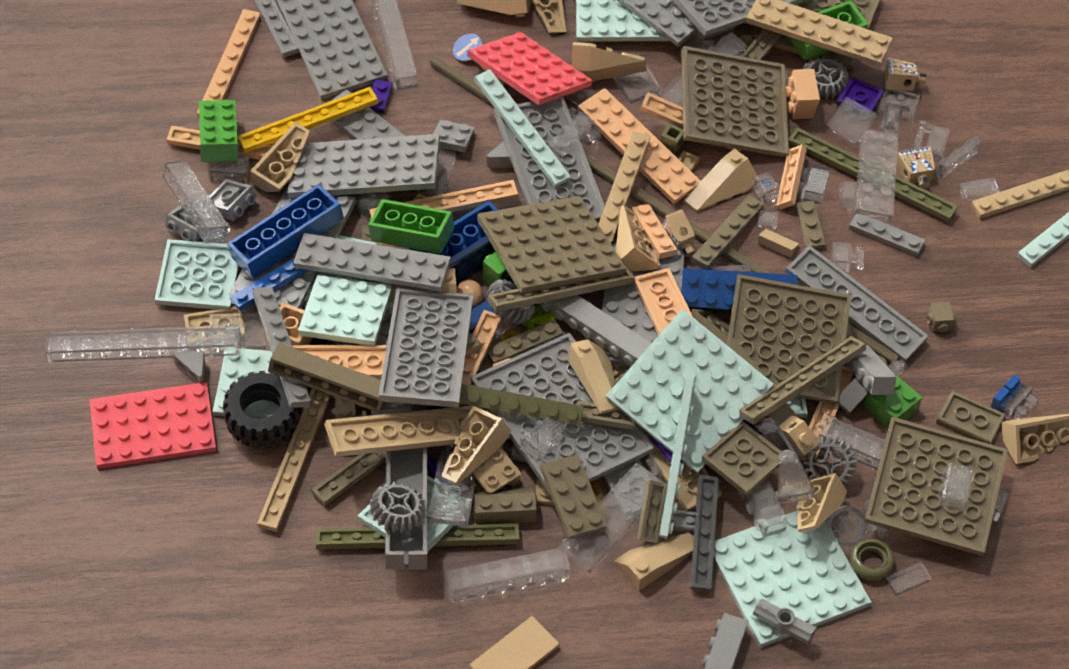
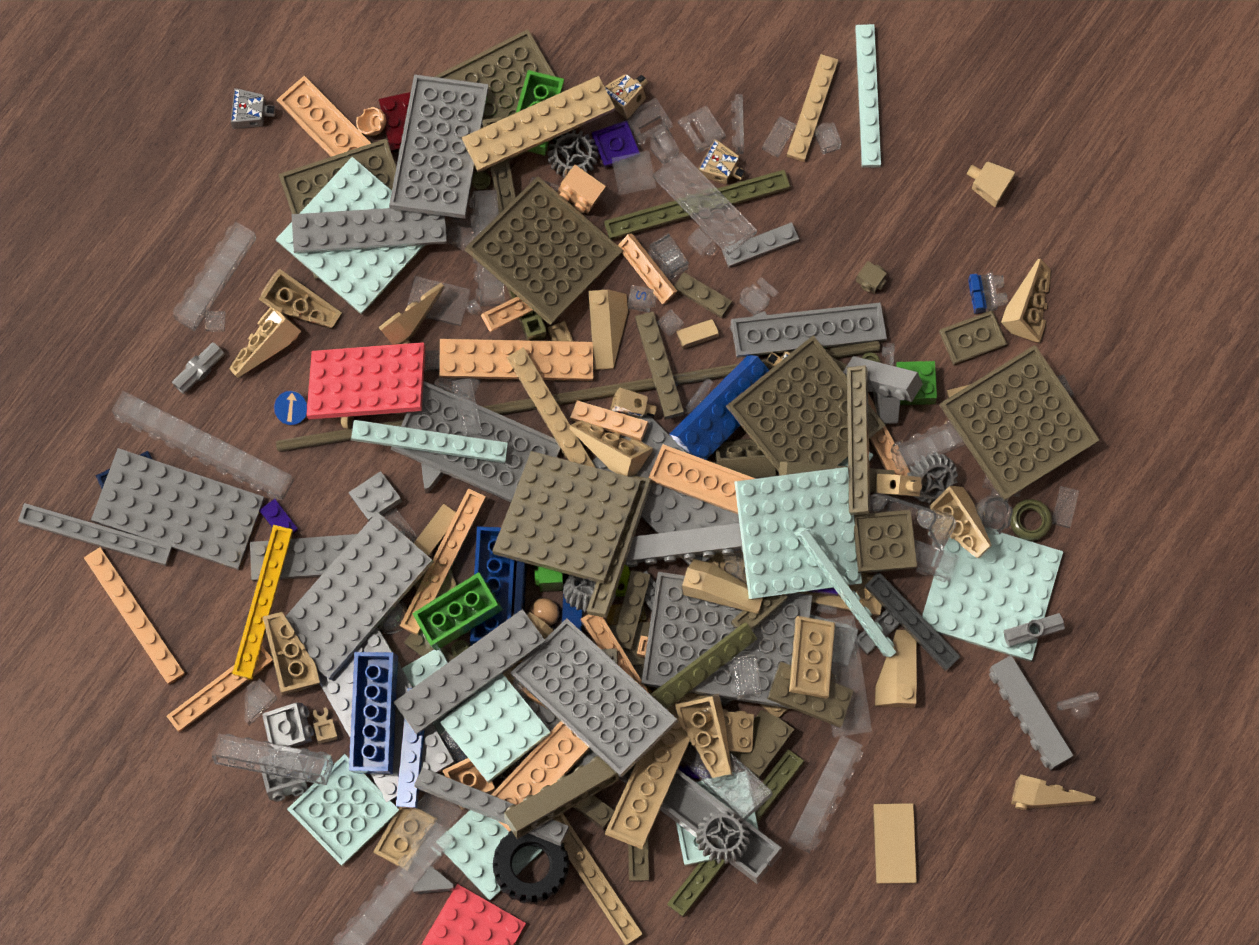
camera: 50 degrees left, 20 degrees up
(218, 131) = (214, 685): bright green brick -> none
(248, 221) = (324, 728): none -> tan plate
(451, 184) = (435, 530): none -> tan tile
(602, 473) = (812, 657): none -> tan tile
(652, 511) = (867, 646): dark tan plate -> none
(956, 486) = (1037, 413): clear brick -> none
(1012, 216) = (828, 137): none -> clear brick

